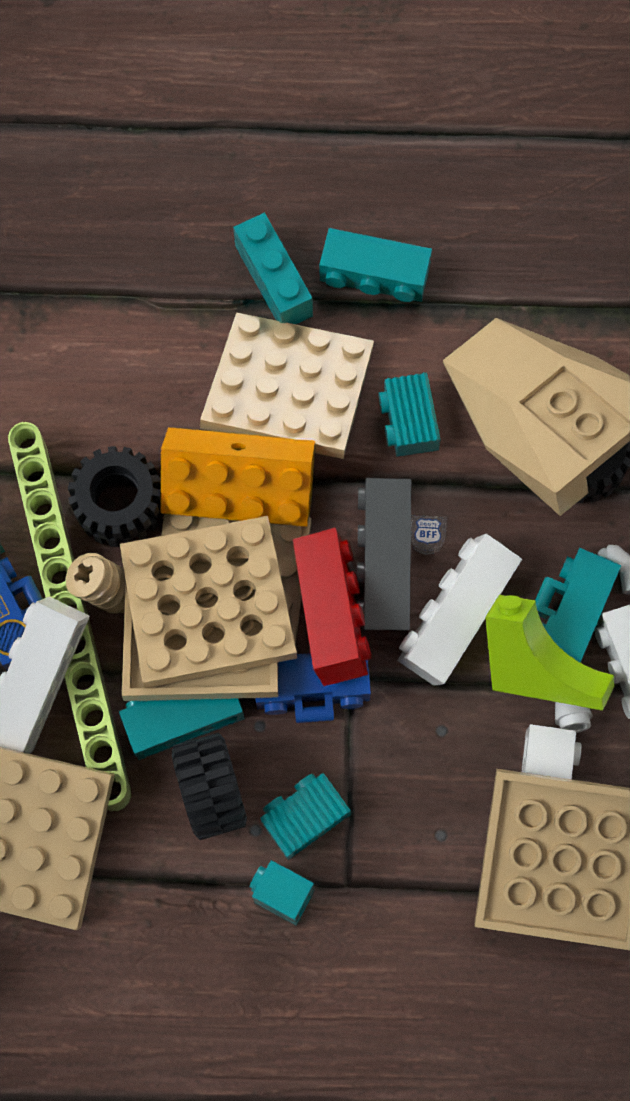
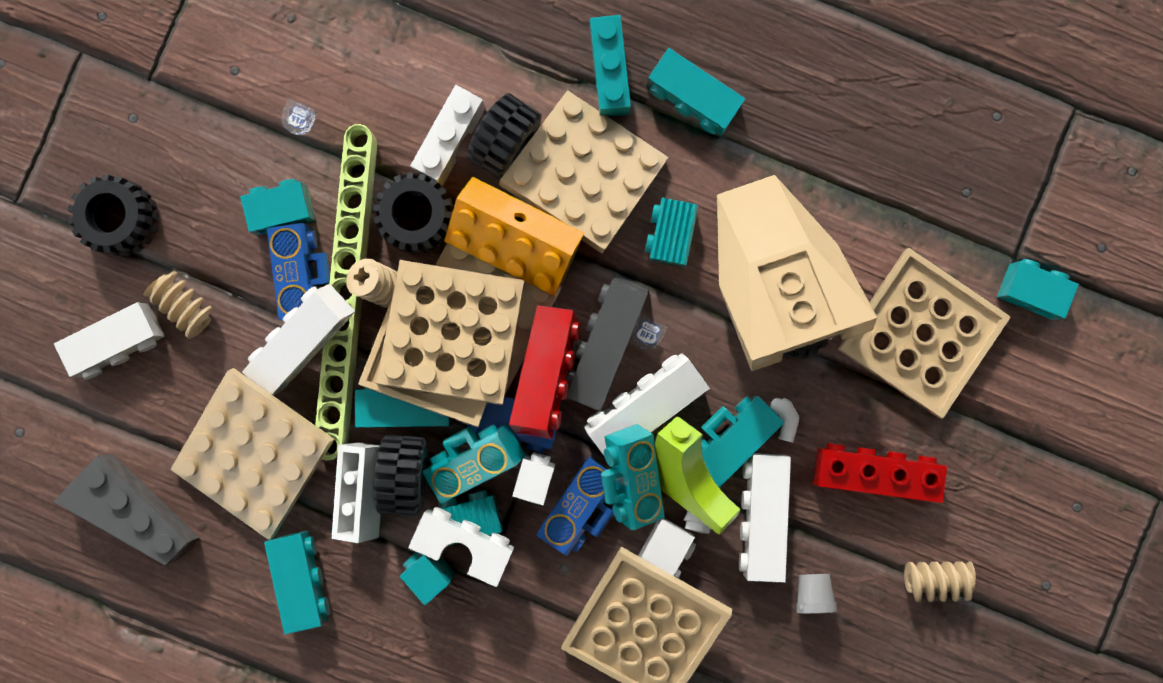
camera: 20 degrees right, 15 degrees up
(124, 387) = (453, 123): none -> white arch
(128, 968) = (297, 581): none -> teal brick
(164, 830) = (354, 507): none -> white brick
(185, 374) = (503, 134): none -> black tyre
(277, 757) = (483, 460): none -> teal piece
(277, 831) = (489, 553): none -> white arch
(365, 732) = (534, 478): none -> white brick
(421, 769) = (568, 517): none -> blue piece
(478, 686) = (634, 477): none -> teal piece

